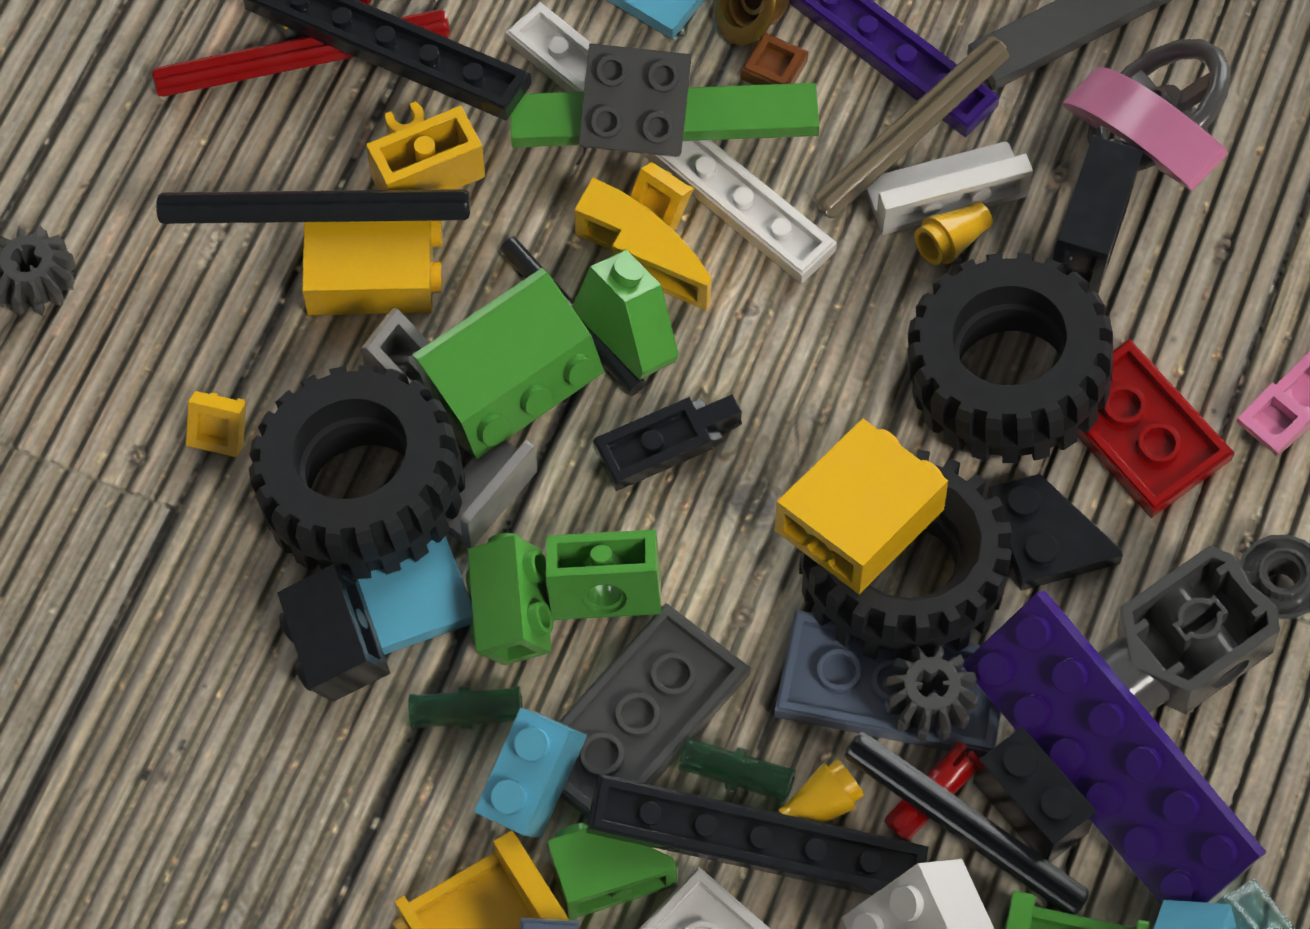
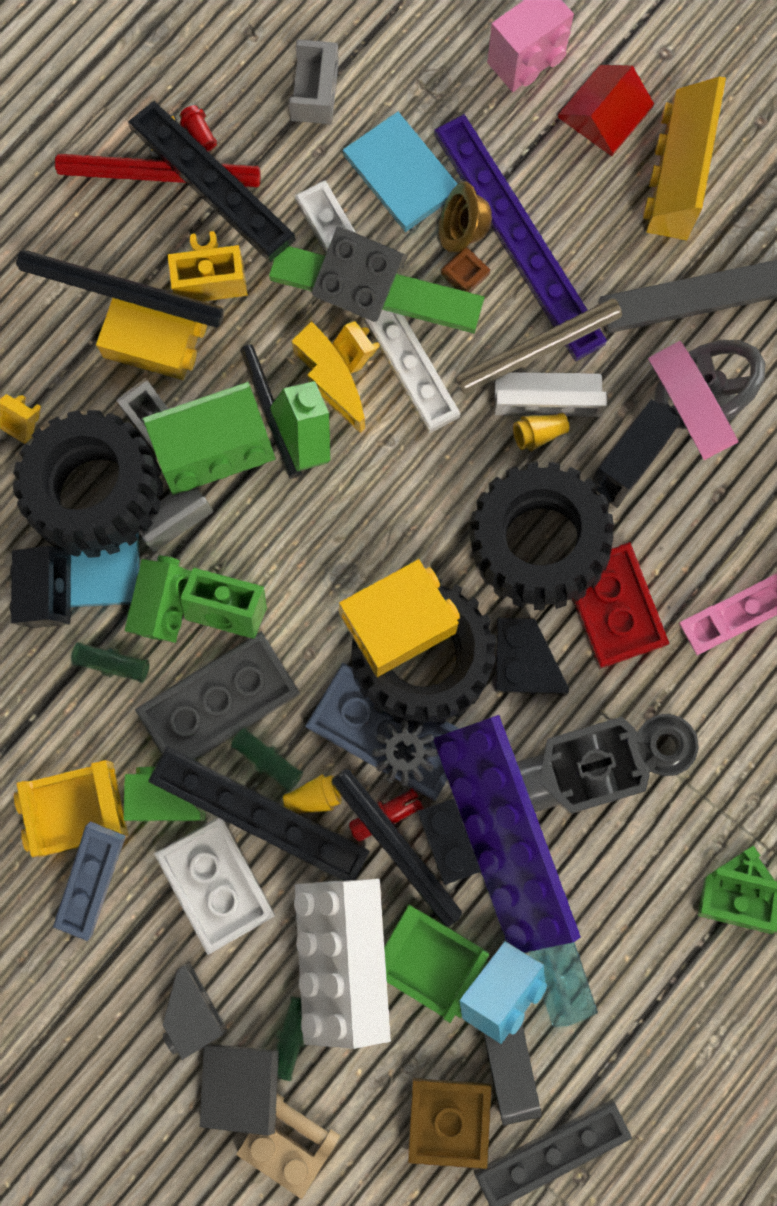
camera: 20 degrees right, 15 degrees up
(530, 773) = (130, 725): medium azure brick -> none
(665, 439) = (299, 518): black hinge -> none

